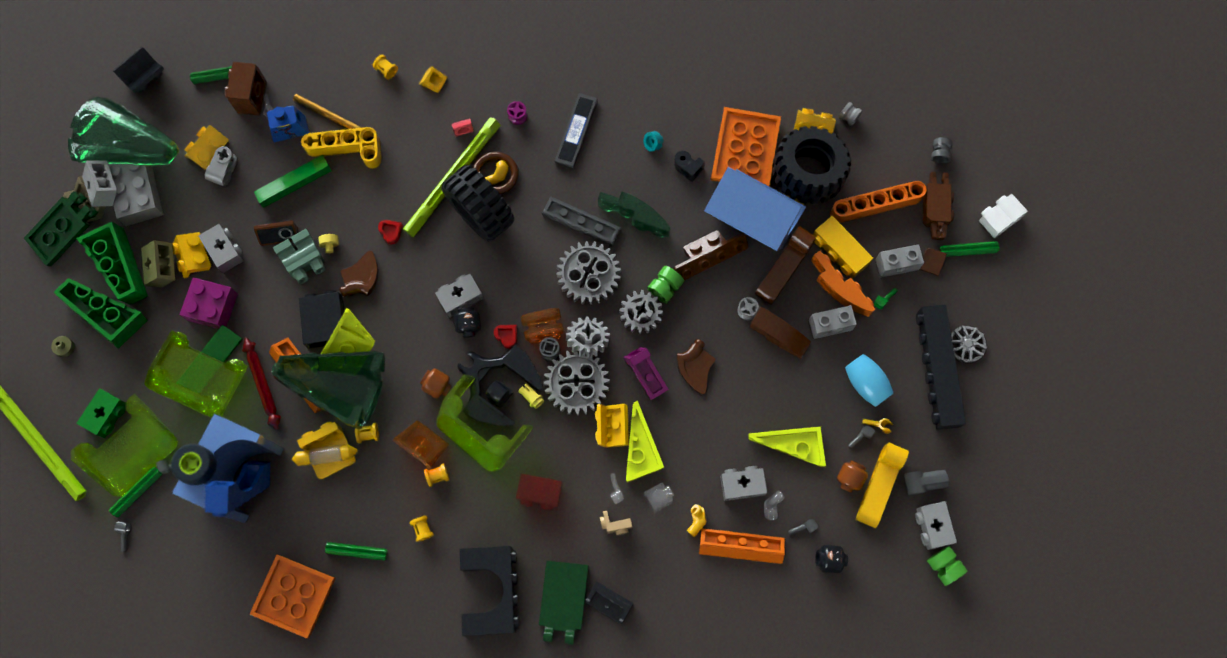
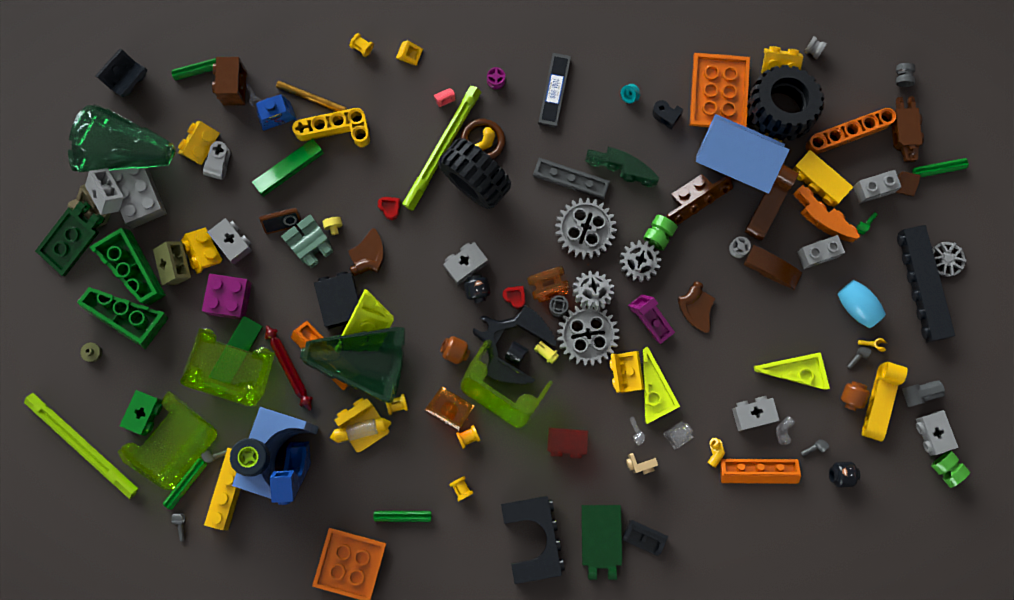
camera: 10 degrees left, 5 degrees up
(169, 517) = (224, 497): none -> yellow brick
(1003, 215) = (971, 130): white brick -> none

